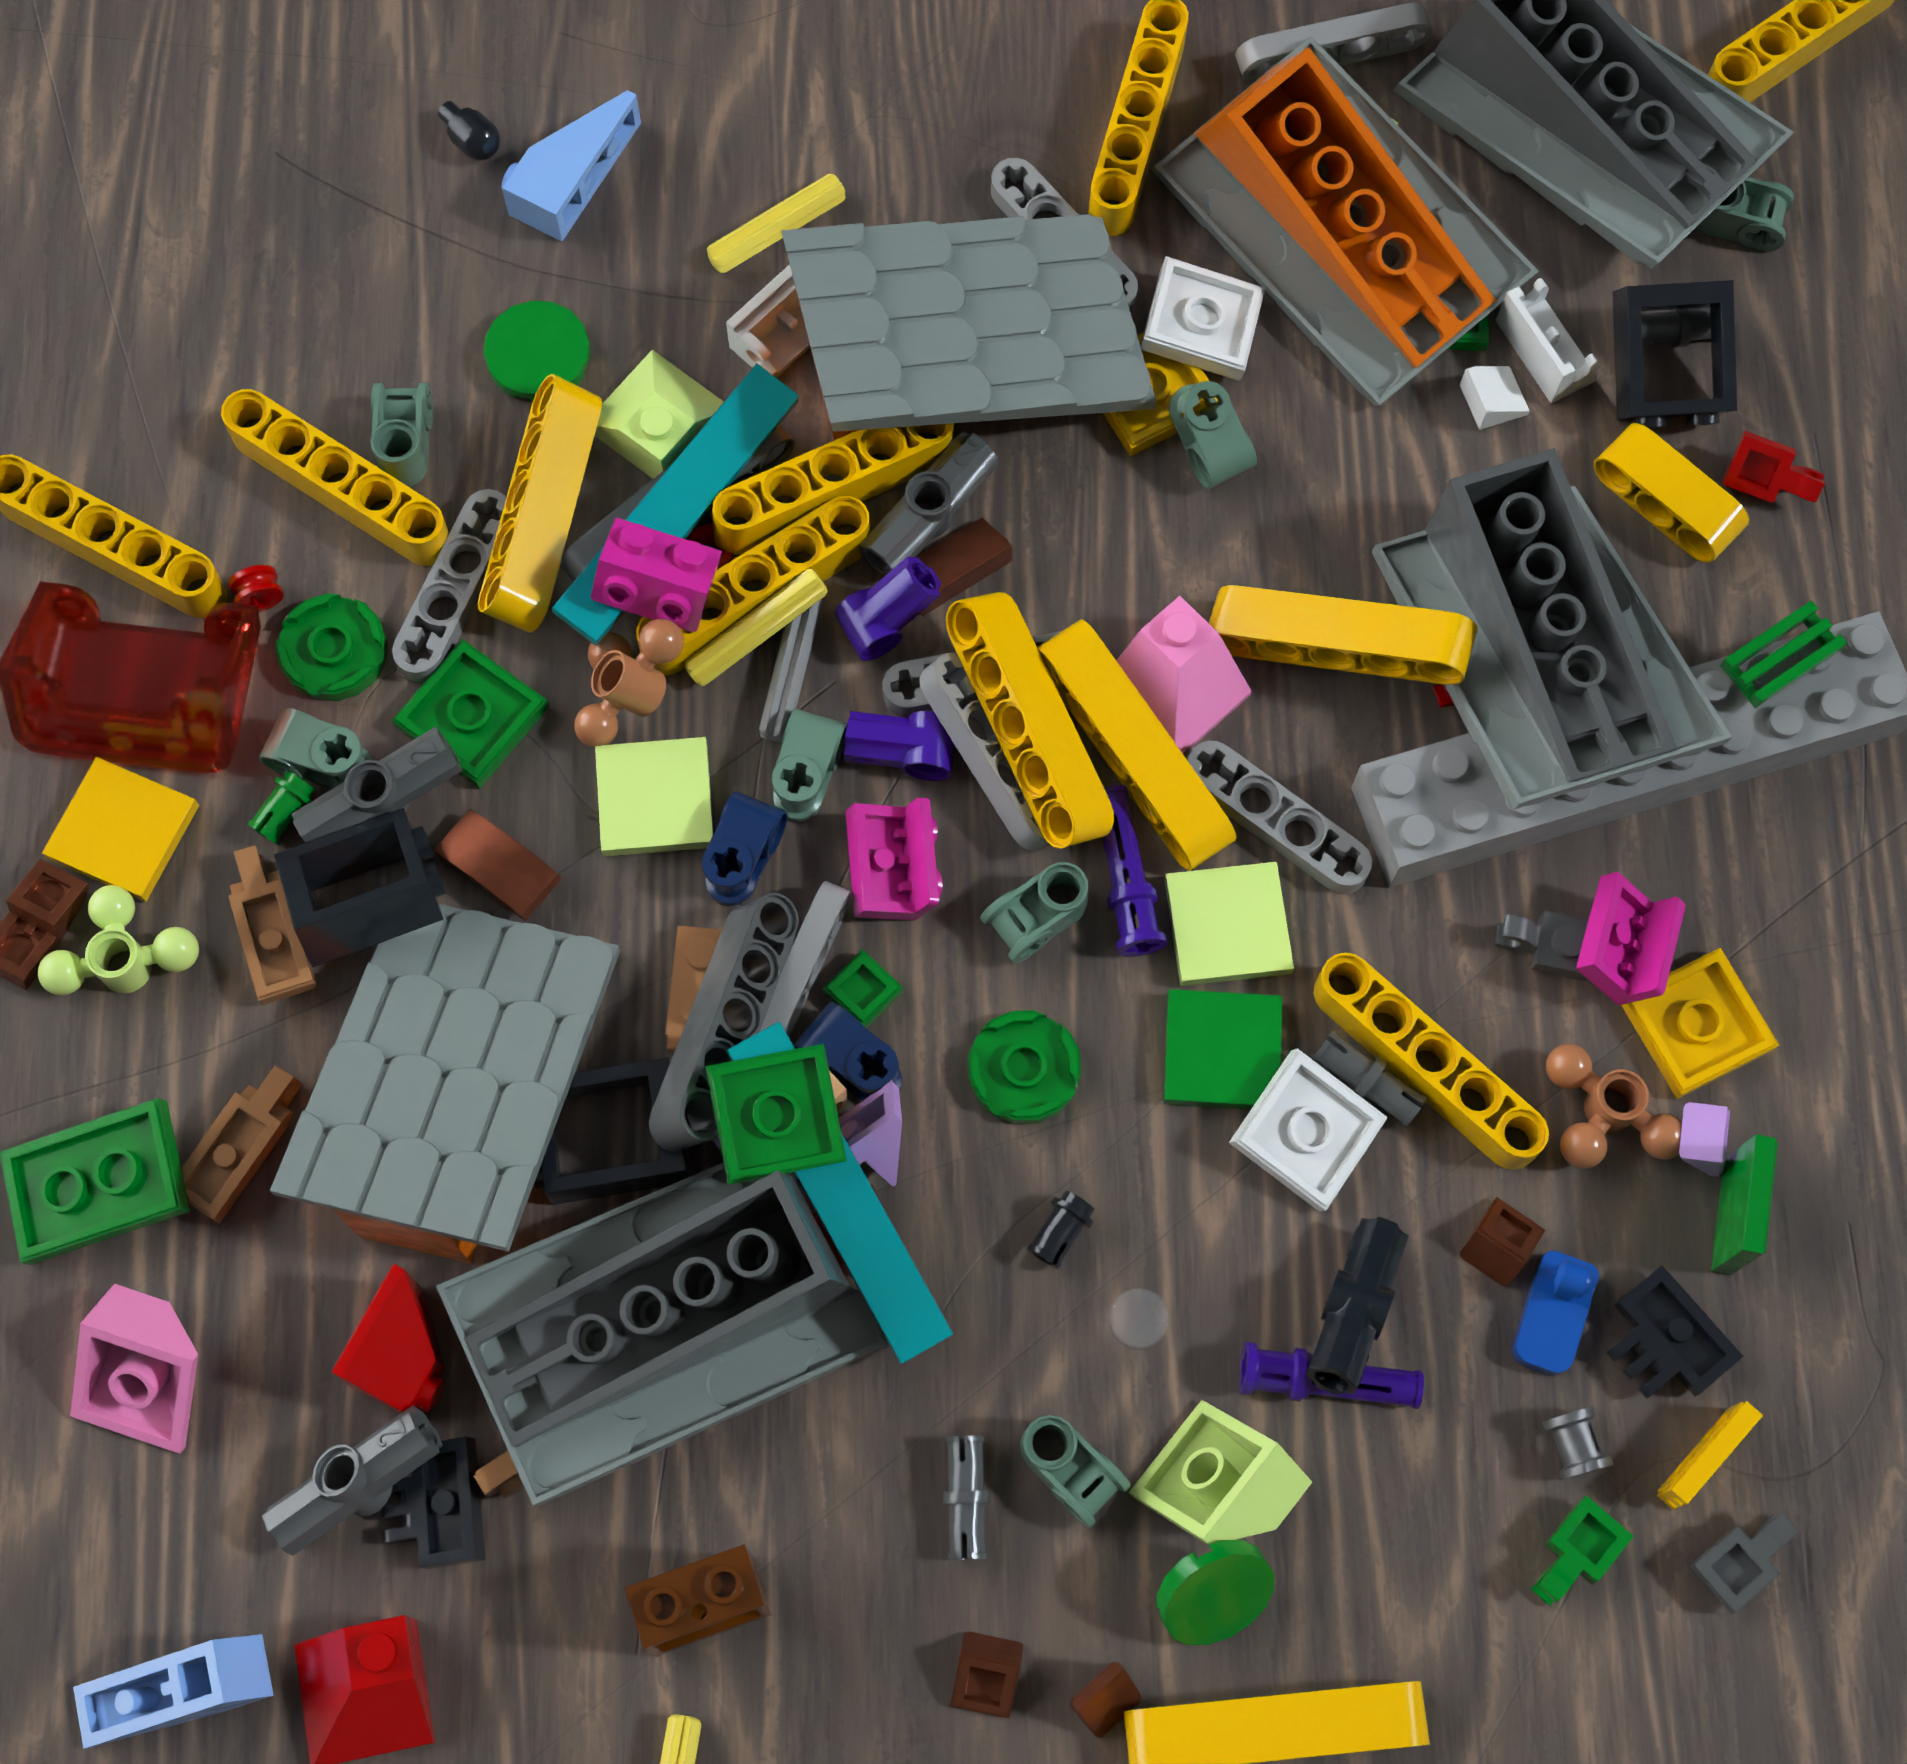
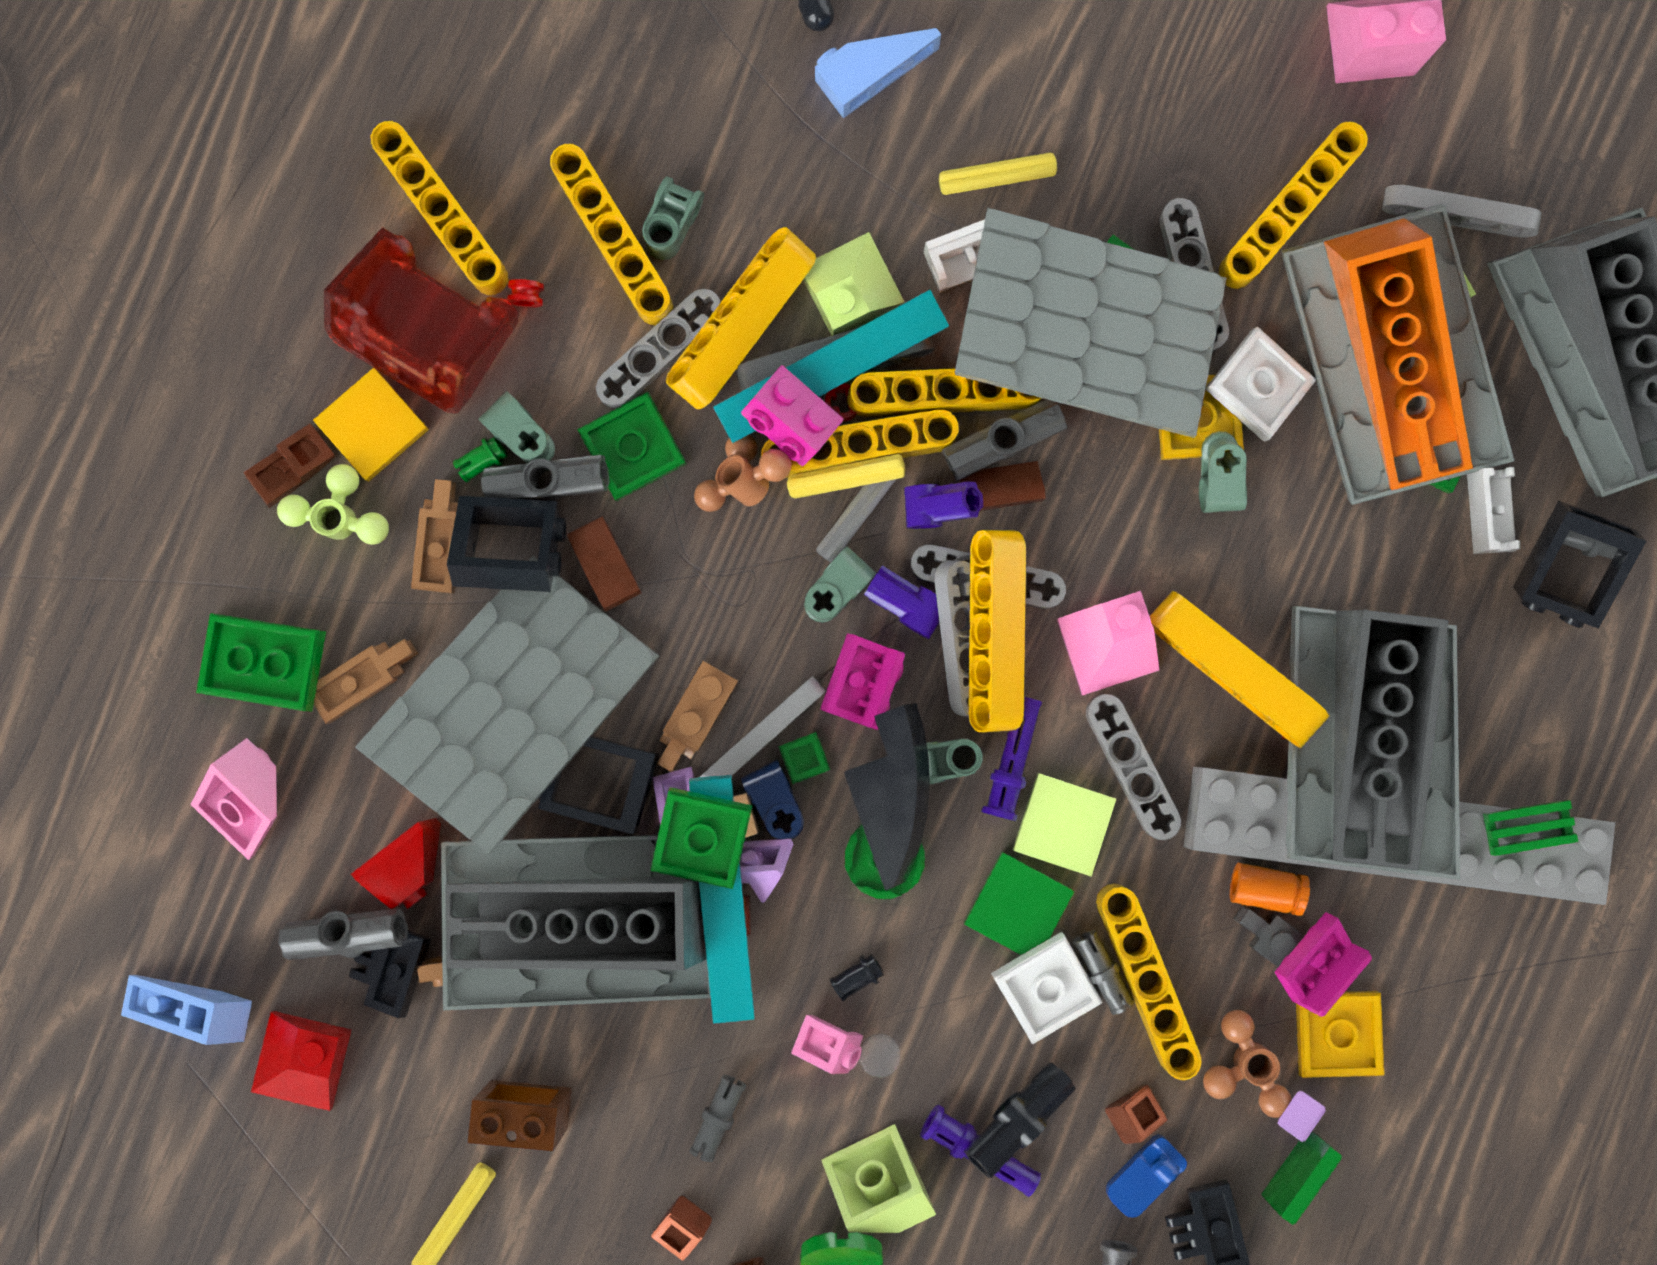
camera: 30 degrees right, 15 degrees up
(331, 647) = (560, 356): green tile -> none
(533, 343) = (790, 196): green tile -> none
(654, 796) = (727, 561): yellowish green tile -> none
(743, 840) = (773, 619): dark blue piece -> none
(752, 940) = (706, 727): dark grey beam -> none
(997, 966) = (894, 794): none -> black slope
(1065, 1332) = (827, 1046): none -> bright pink bracket
(1073, 1470) = (791, 1137): sand green piece -> none
(1136, 746) = (1060, 677): yellow beam -> none
(1493, 395) = (1435, 532): white slope -> none
(1518, 882) = (1269, 889): none -> orange piece
(1671, 493) = (1520, 662): yellow beam -> none
(1766, 466) = (1597, 674): red plate -> none

